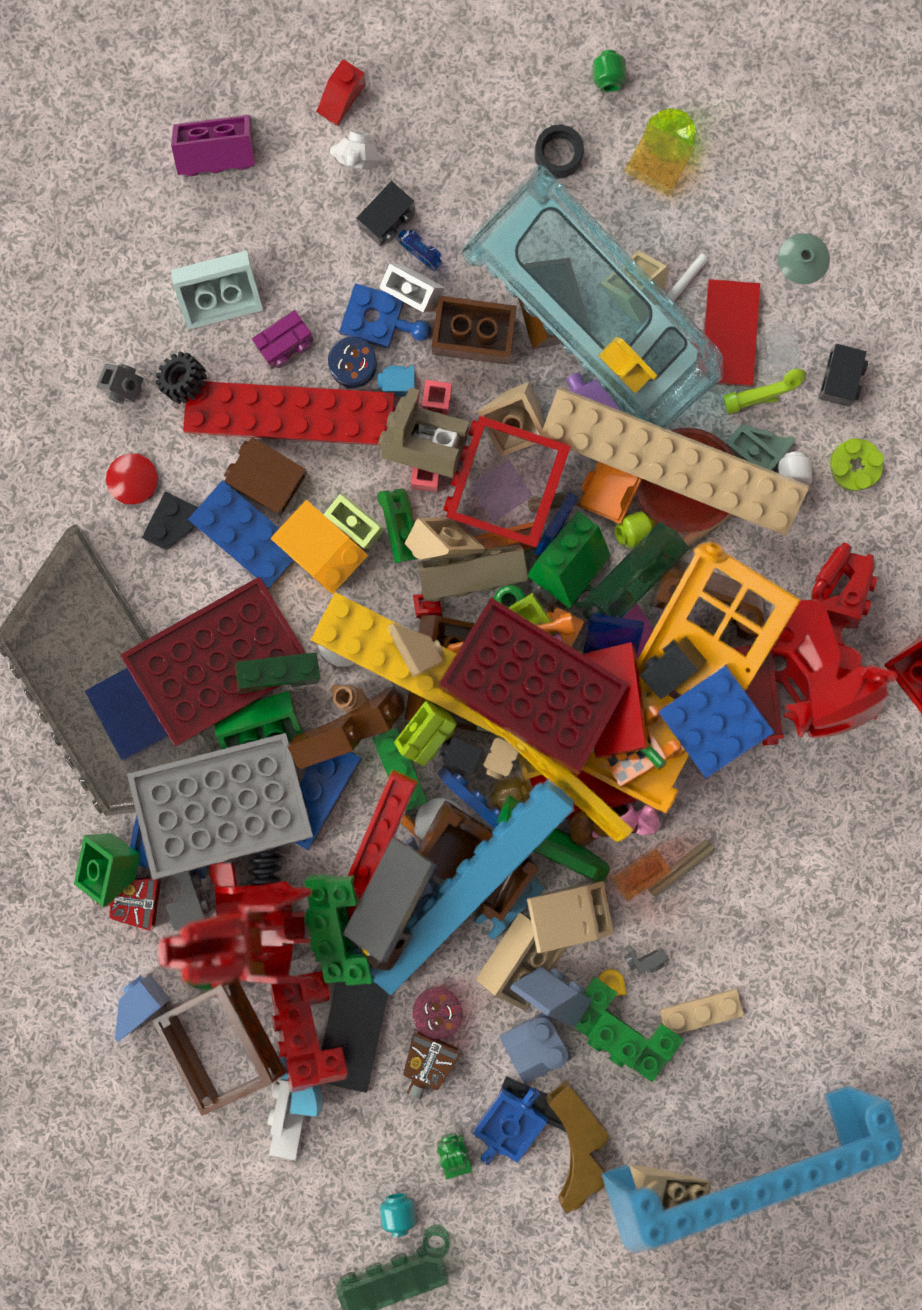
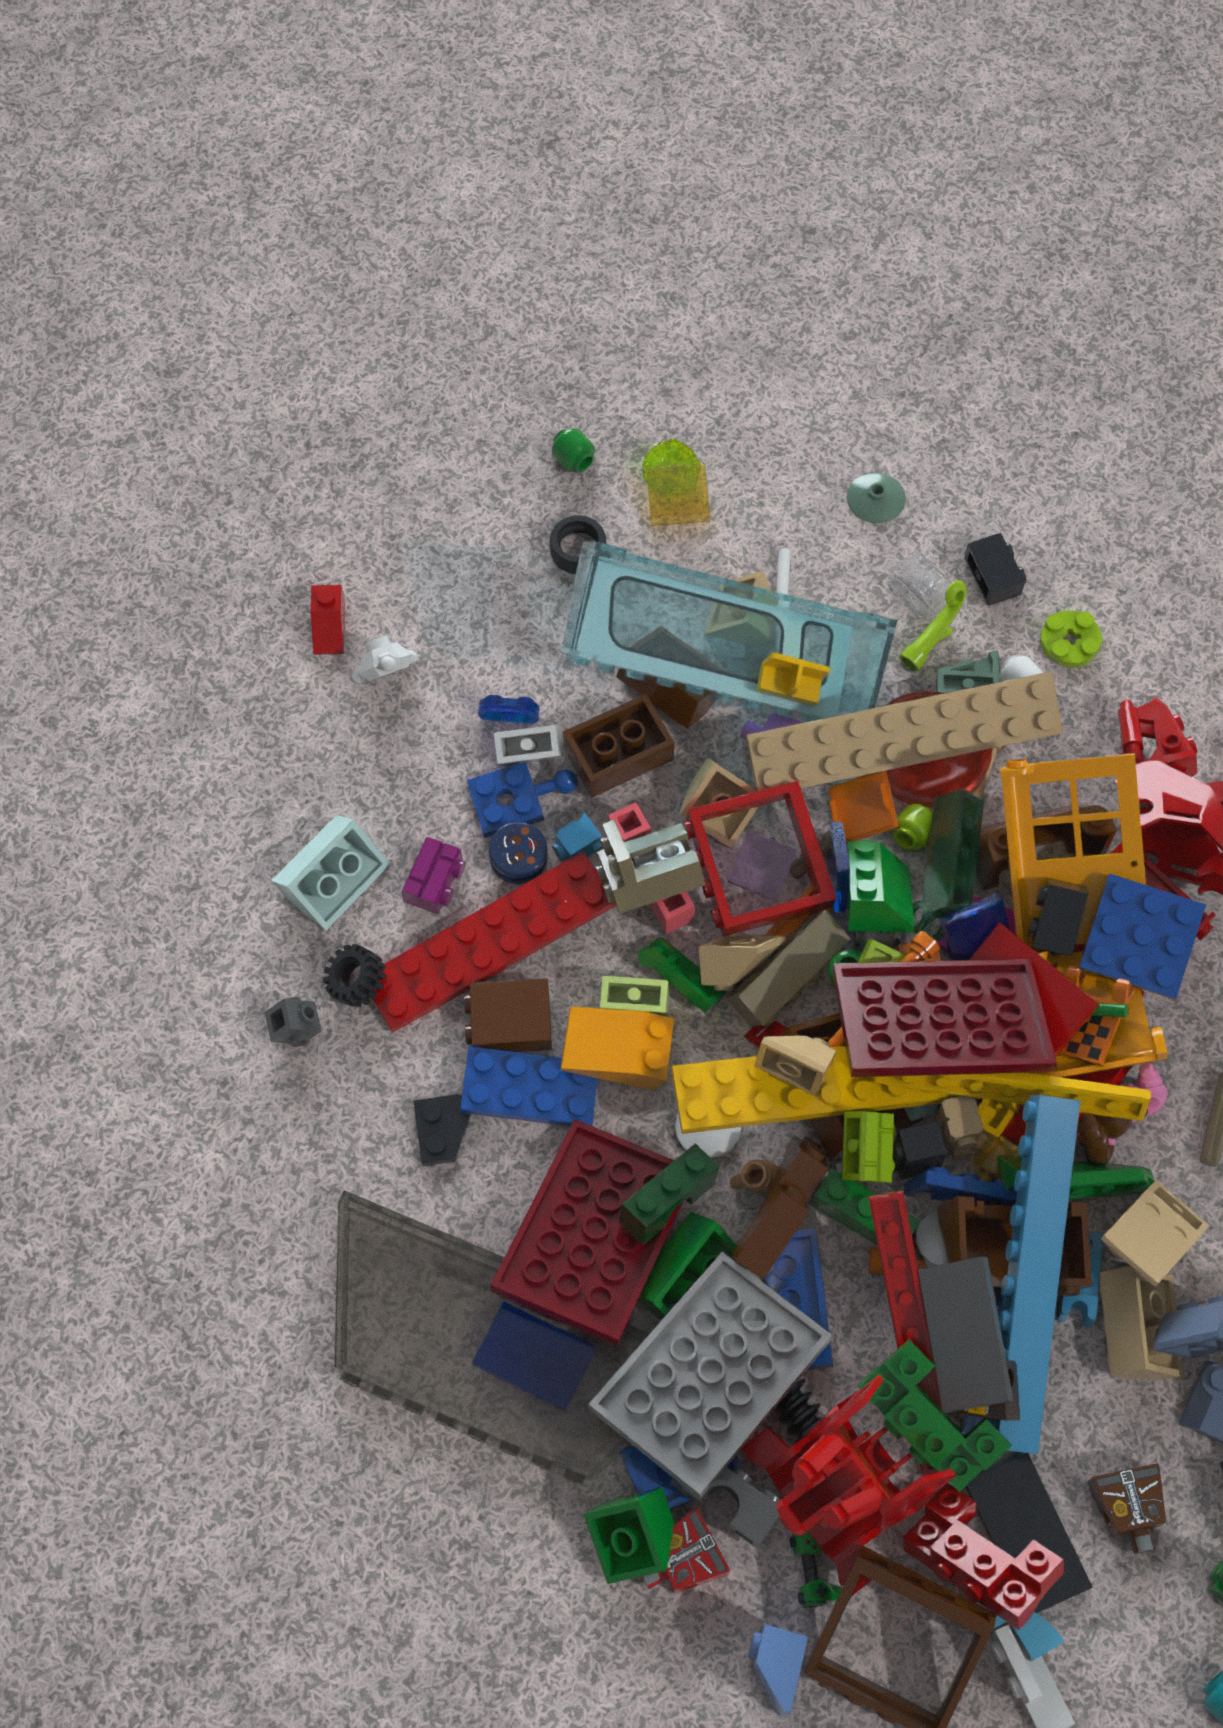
camera: 35 degrees left, 20 degrees down
(131, 479) = (369, 1112): red dish -> none
(213, 145) = (233, 742): magenta slope -> none
(386, 214) = (452, 697): black brick -> none
(437, 1012) = (1098, 1442): clear pink head -> none
(640, 874) = (1186, 1147): clear orange brick -> none
(732, 327) = (853, 584): red tile -> none

